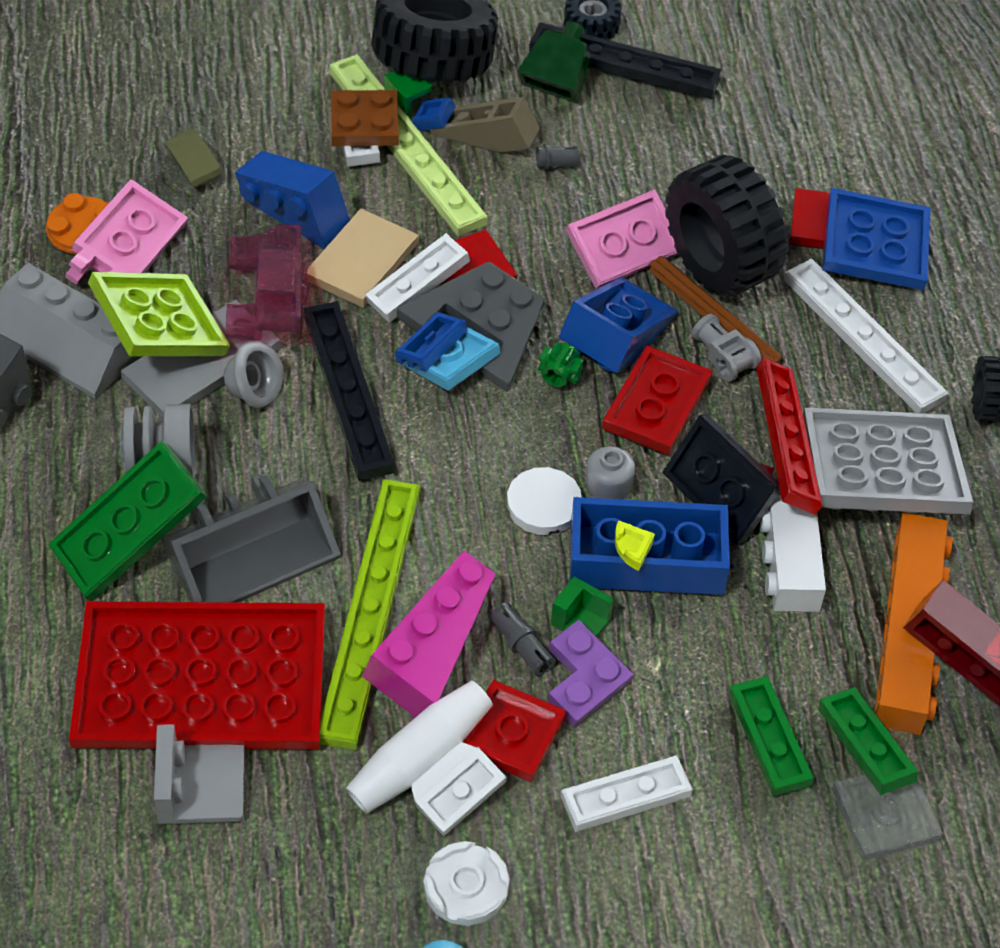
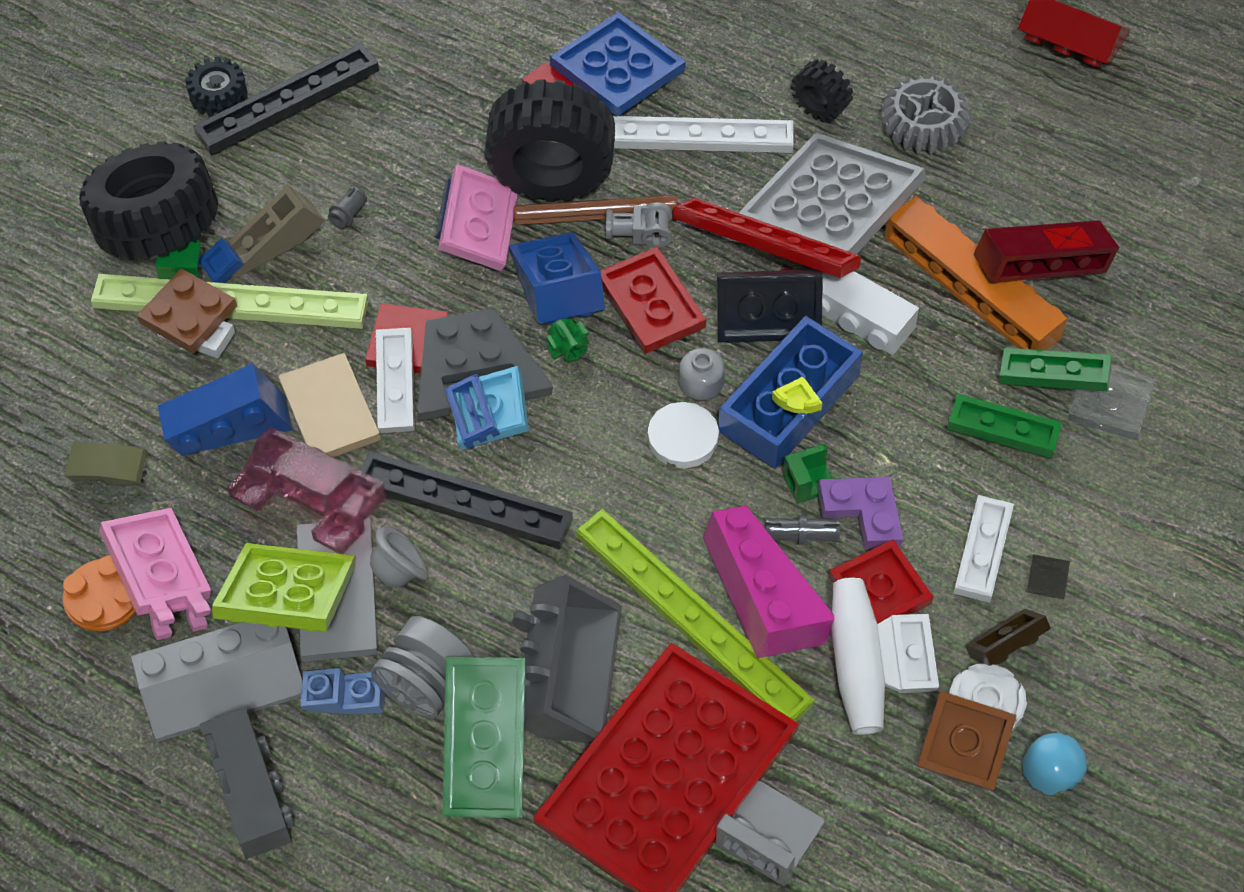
camera: 50 degrees left, 5 degrees up
(105, 411) = (339, 693): none -> medium blue slope
(401, 883) = (966, 741): none -> dark orange plate
(530, 856) = (1005, 638): none -> dark brown plate
(557, 63) = (256, 141): dark green torso -> none
(639, 862) = (1048, 576): none -> clear smoke tile

